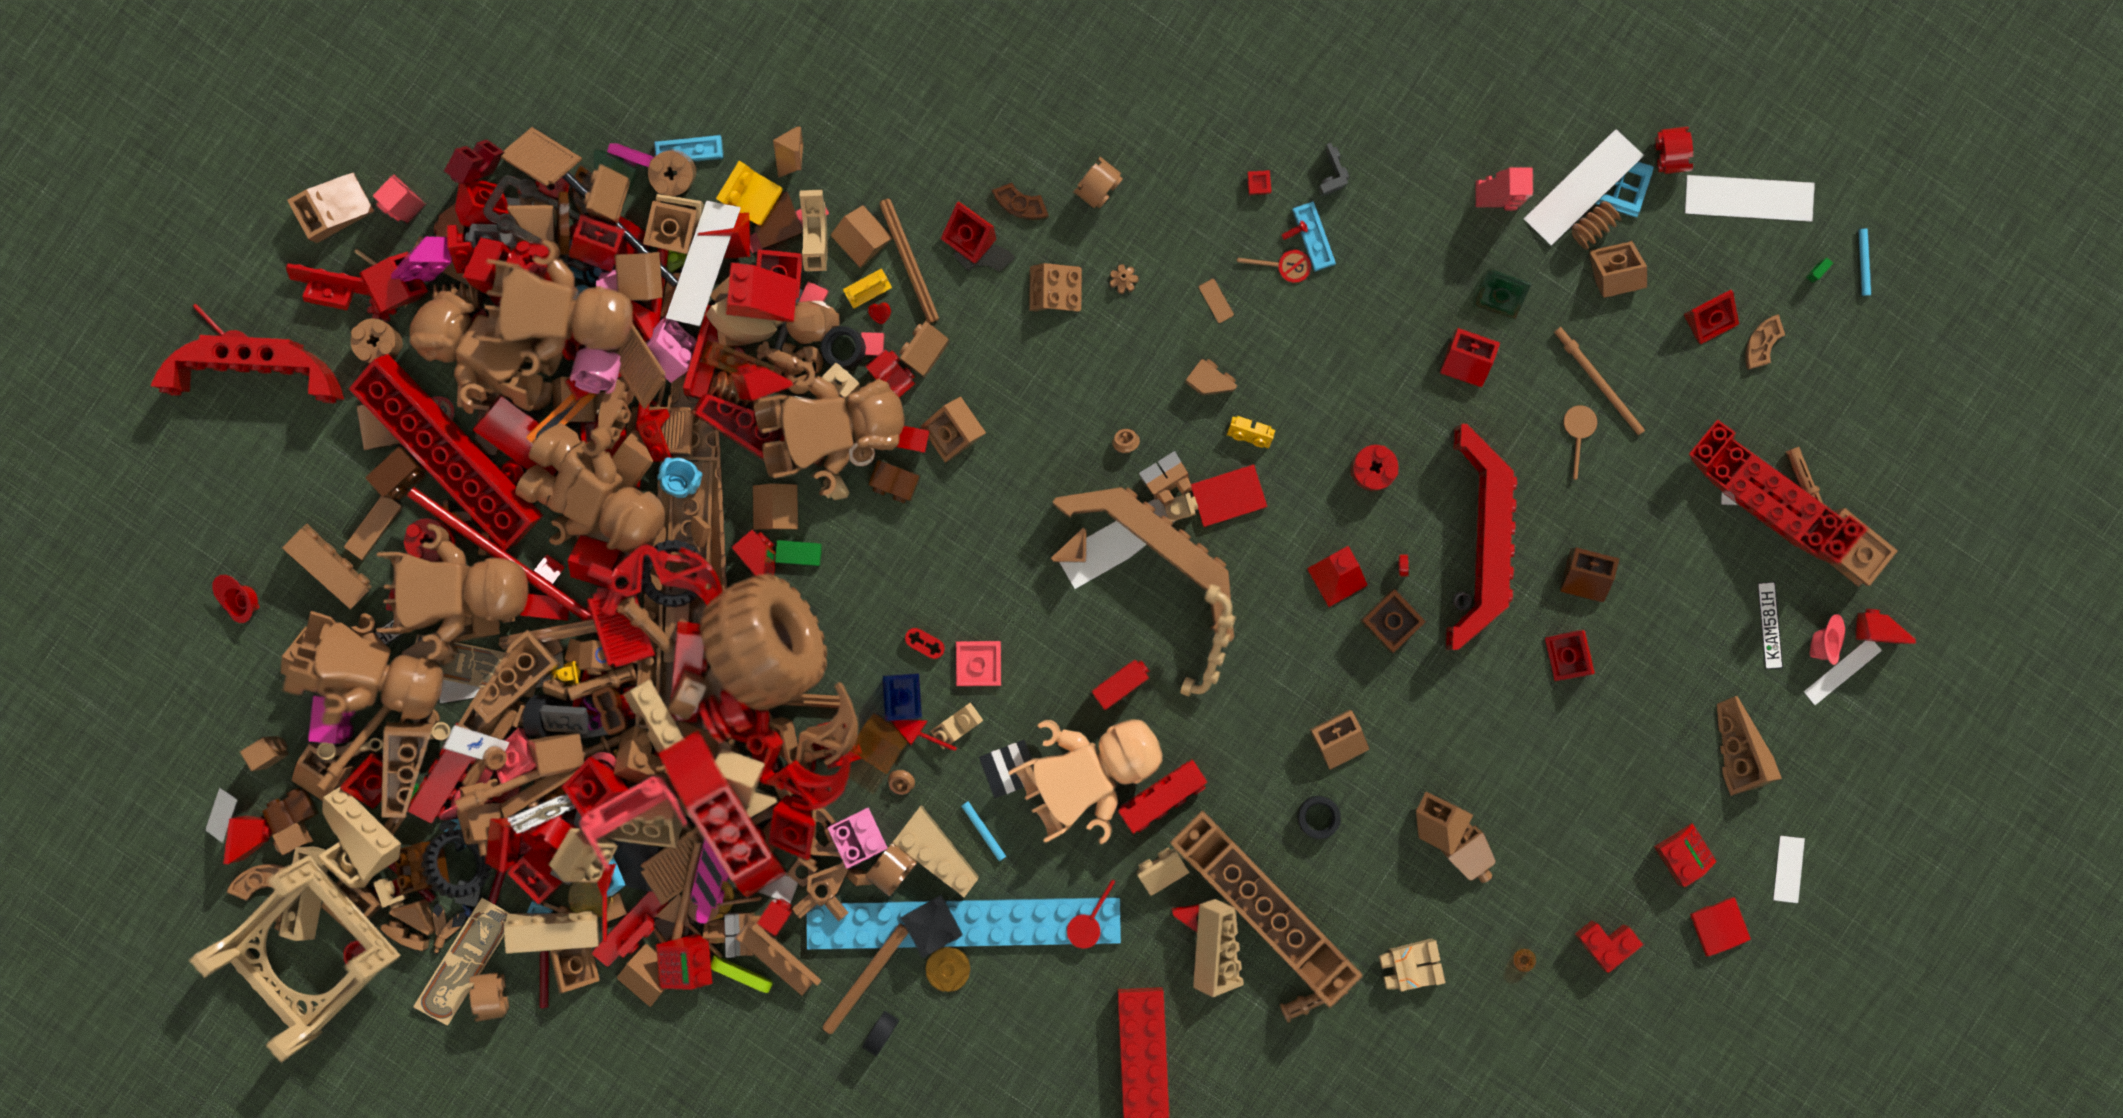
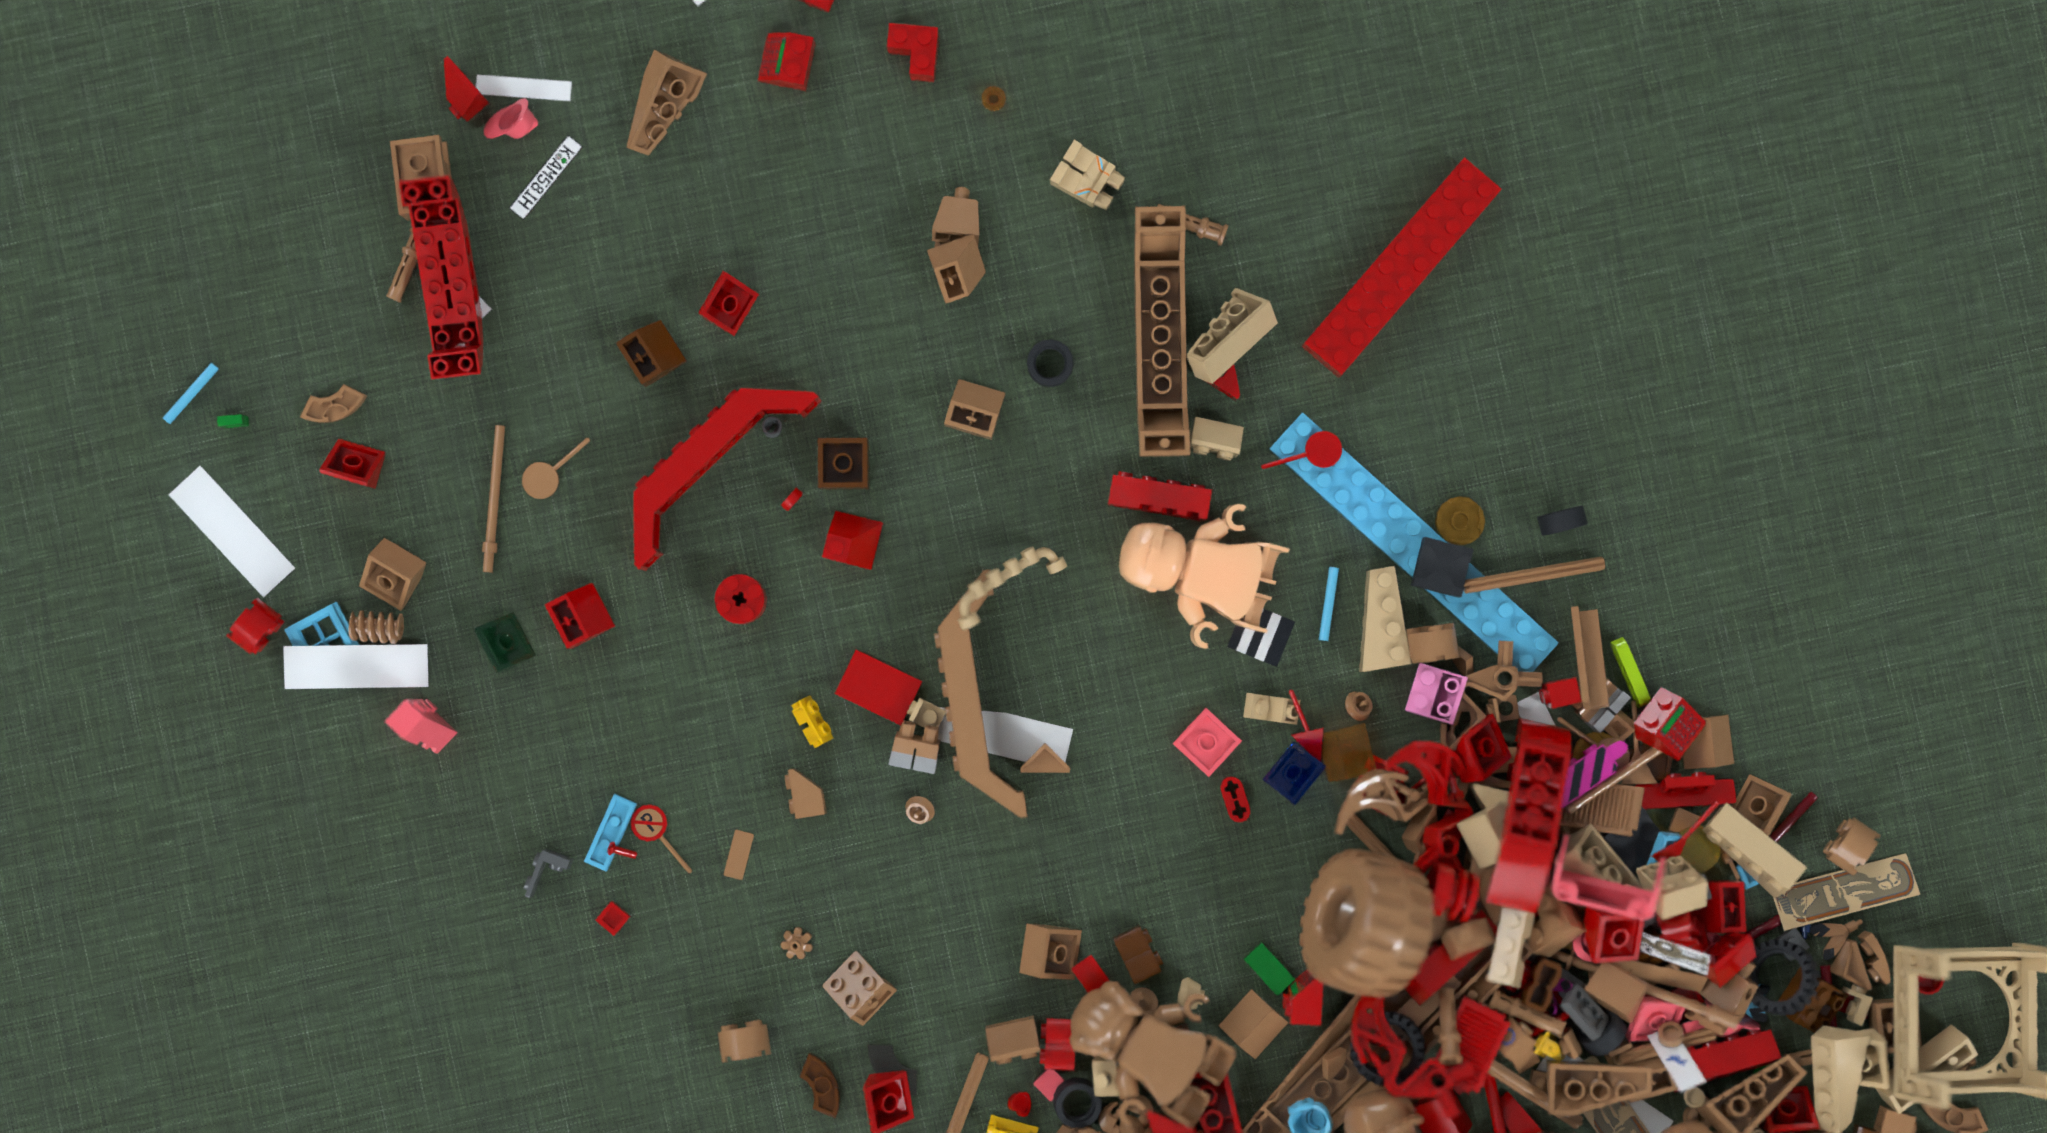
camera: 140 degrees left, 0 degrees up
(1121, 683) = (1108, 618): red window -> none

